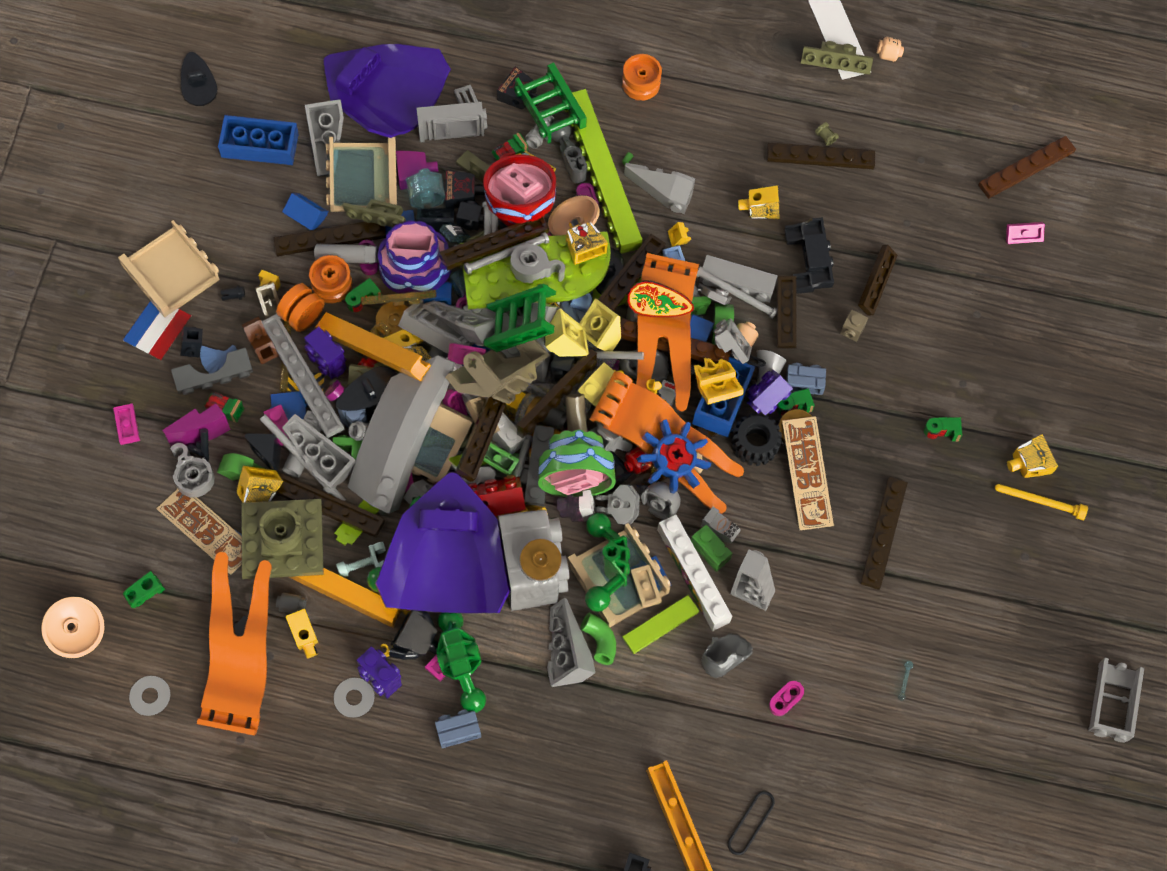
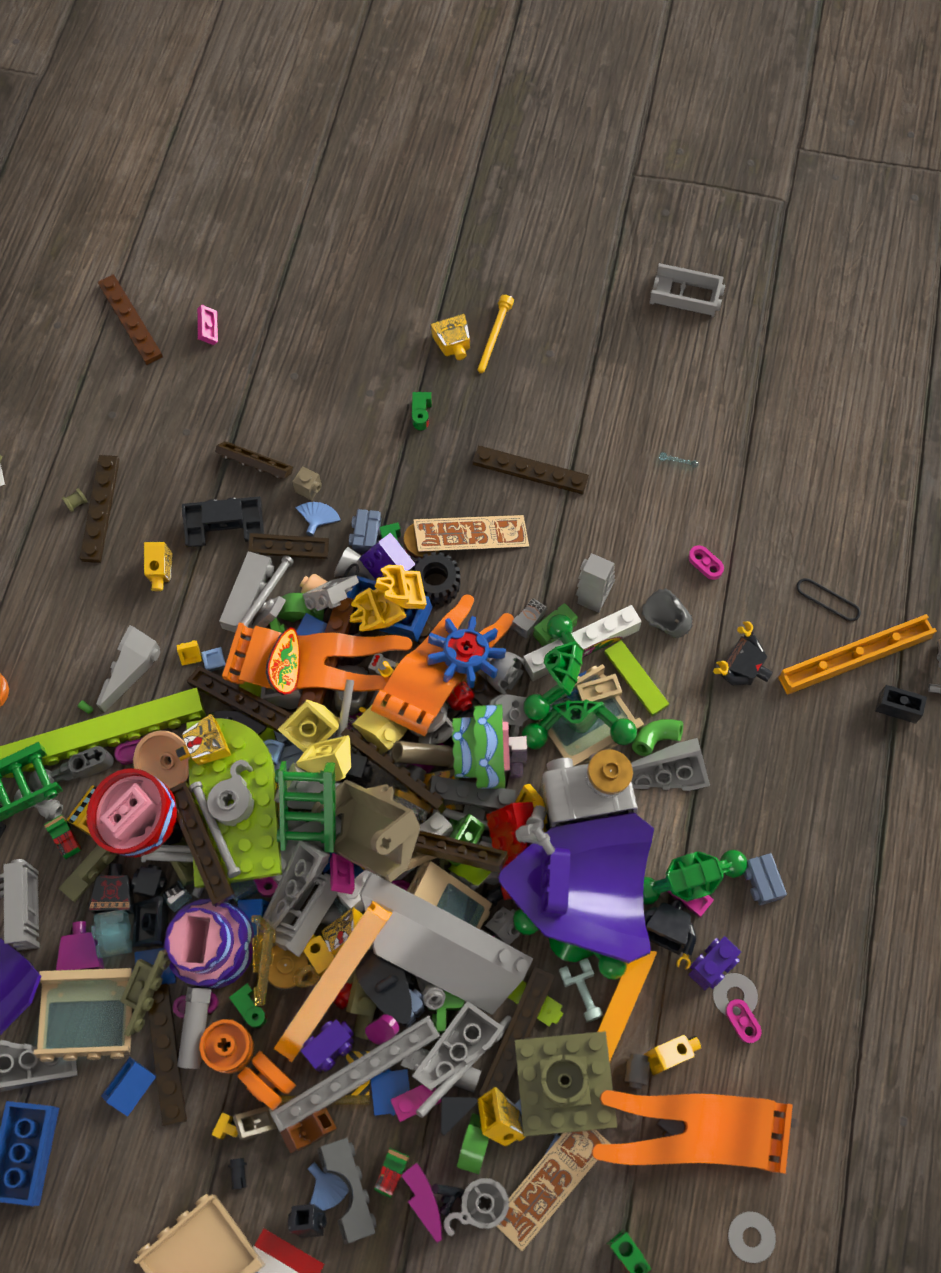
camera: 85 degrees left, 0 degrees up
(329, 698) = (743, 1020): none -> dark pink plate
(491, 498) = (534, 832): none -> light grey pin
(660, 539) = (562, 663): none -> green piece
(677, 727) = (745, 660): none -> torso
(735, 397) = (402, 587): none -> yellow plate
(823, 338) = (317, 515): none -> medium blue hand

